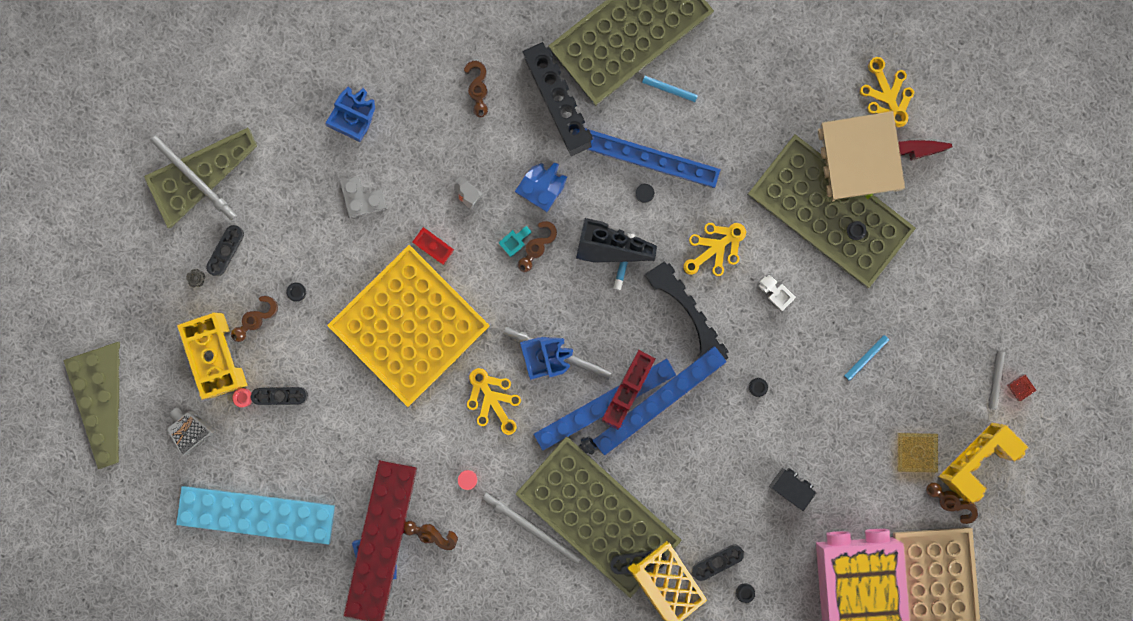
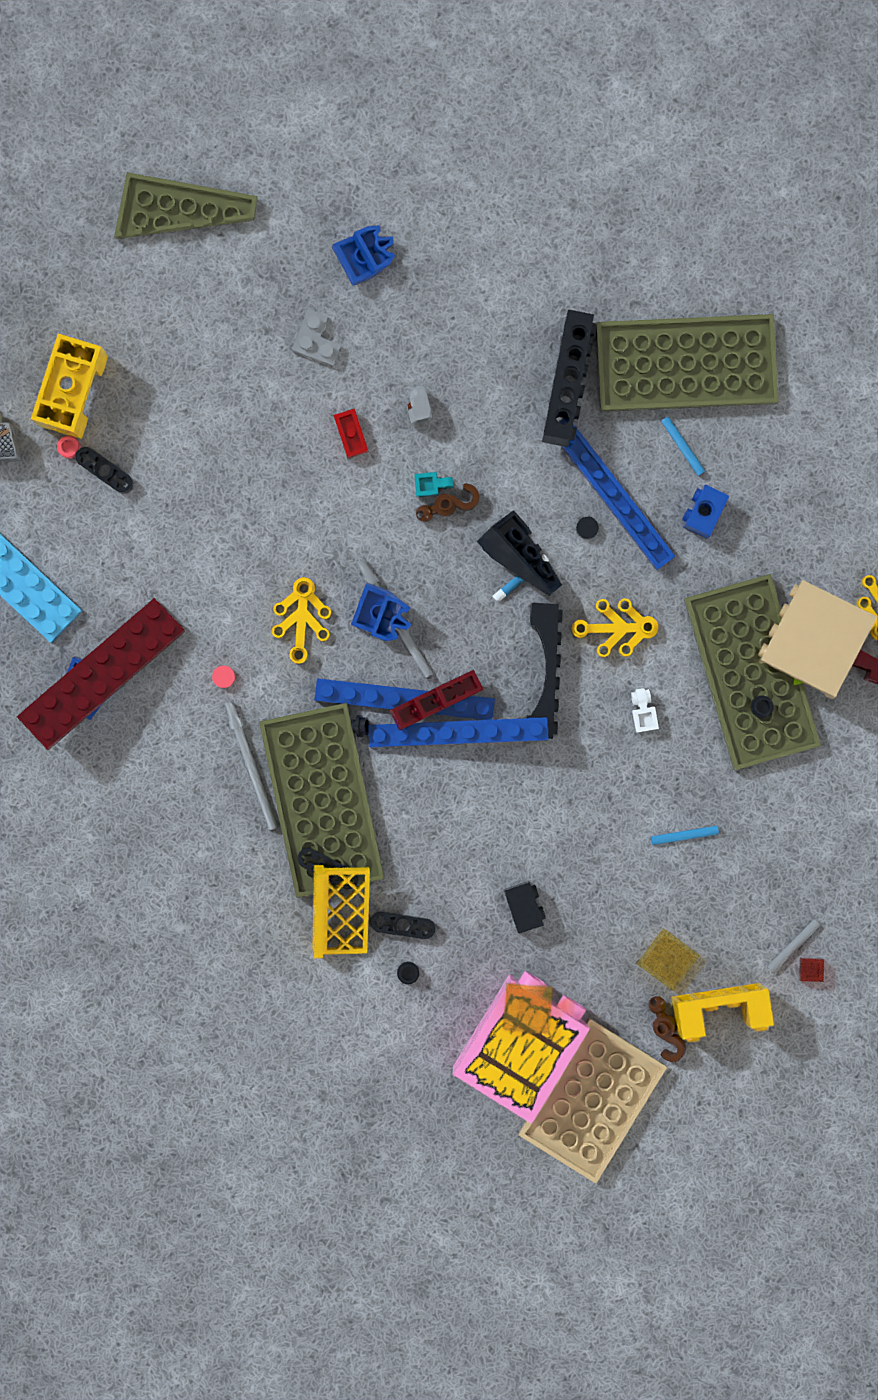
camera: 30 degrees right, 0 degrees up
(200, 278) = (110, 307): clear smoke plate -> none
(217, 252) = (153, 288): black beam -> none
(219, 204) = (179, 248): light grey bar -> none
(253, 319) = (131, 381): reddish brown piece -> none
(296, 292) = (190, 384): black tile -> none
(408, 325) = (273, 491): yellow plate -> none
(428, 534) = (151, 701): reddish brown piece -> none
(477, 89) = (500, 316): reddish brown piece -> none
(541, 186) = (494, 450): blue plate -> none
(721, 112) = (714, 501): none -> blue brick
(758, 387) = (561, 788): black plate -> none
(850, 561) = (527, 1008): none -> clear yellow tile

